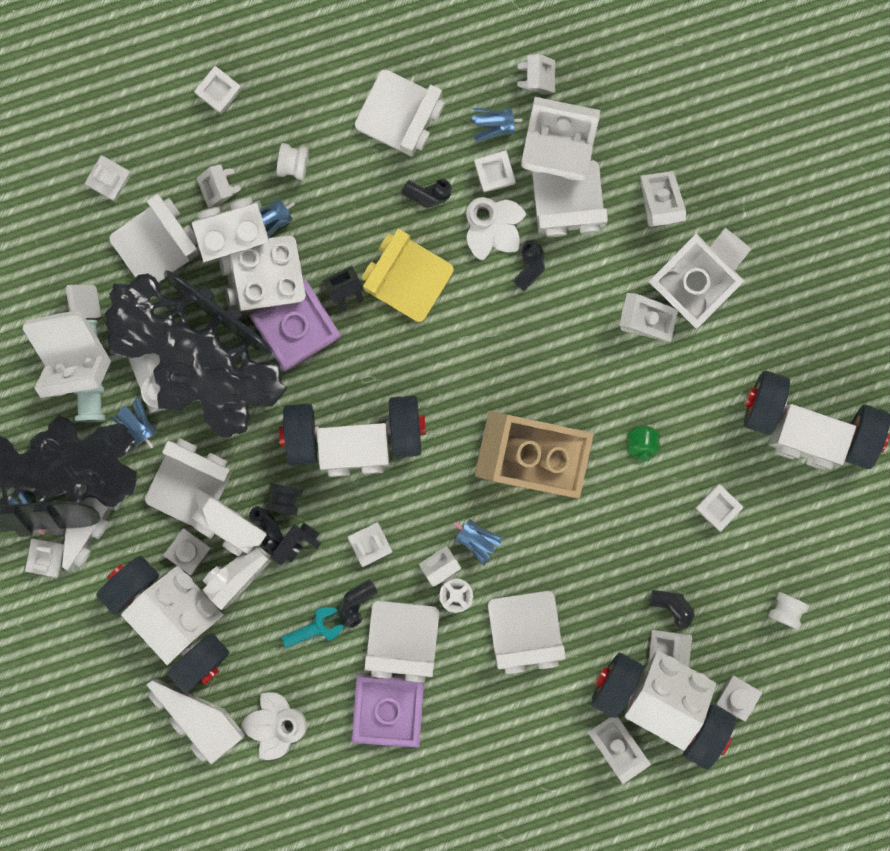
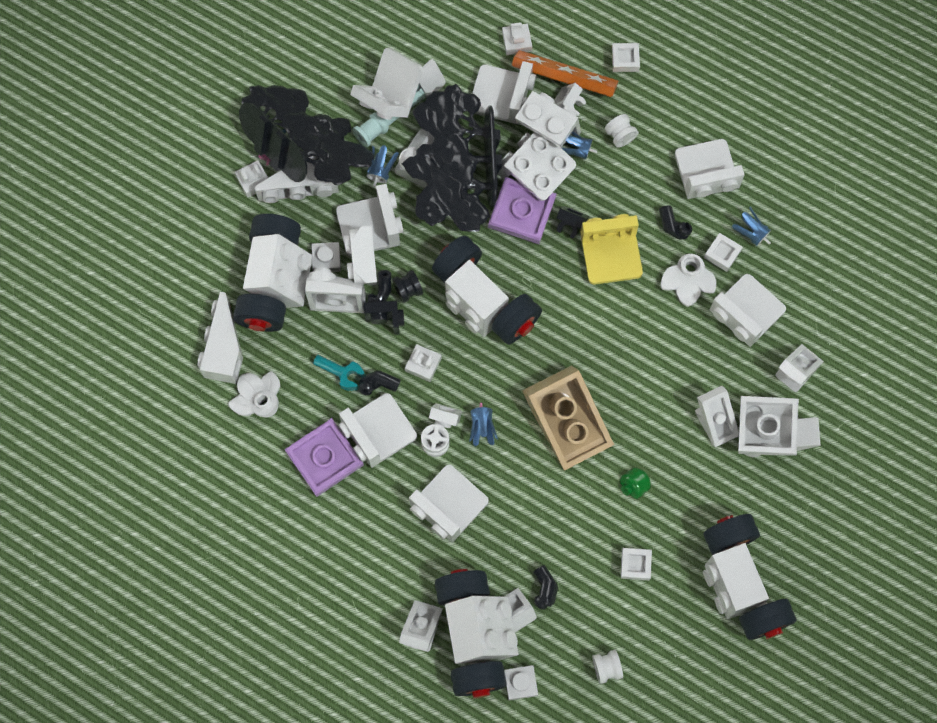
camera: 55 degrees right, 15 degrees down
(186, 163) = (567, 73): none -> orange tile
(533, 264) = (687, 321): black arm -> none
(539, 74) = (807, 230): white tile -> none
(560, 139) = (780, 272): white bracket -> none

